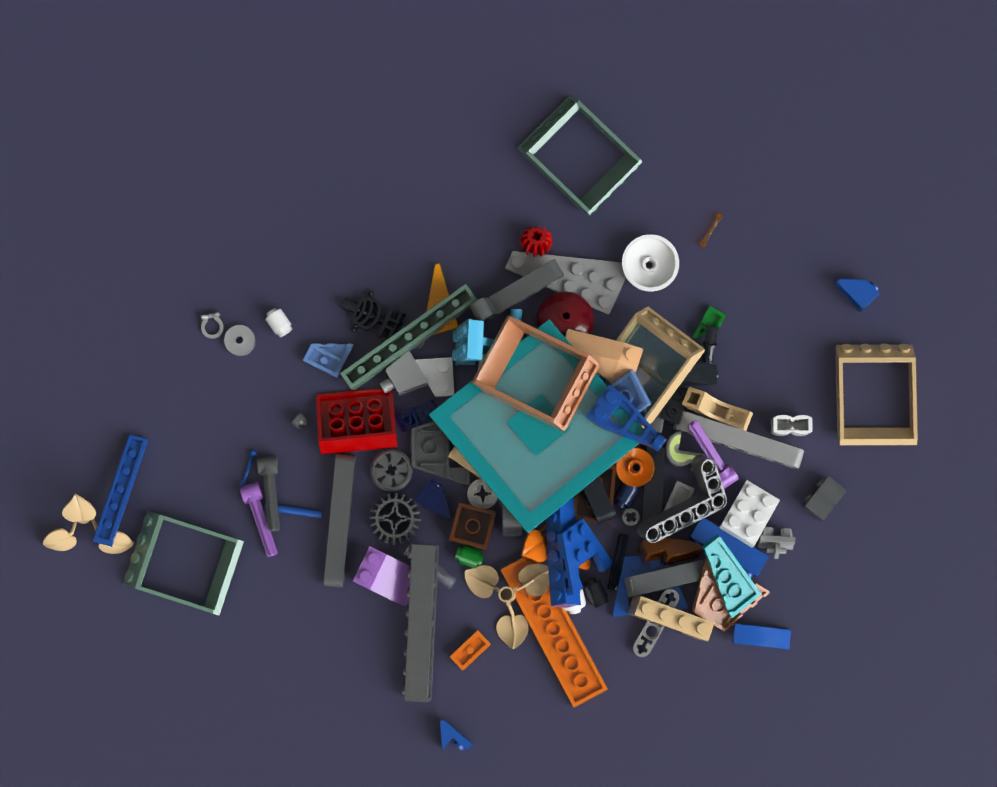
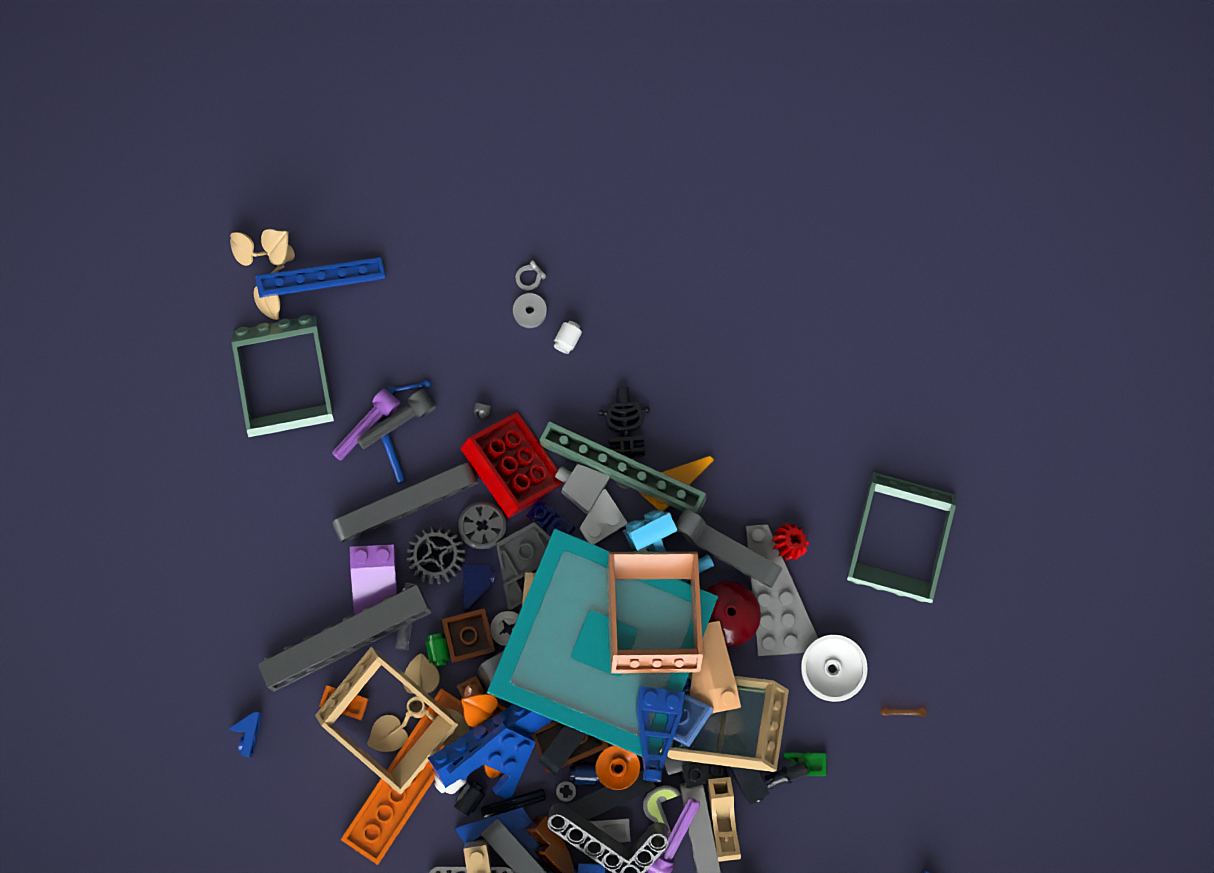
camera: 55 degrees right, 5 degrees down
(328, 357) = (560, 404): medium blue wing -> none
(514, 547) = (470, 687): none -> nougat plate
(541, 609) = (426, 745): none -> tan window

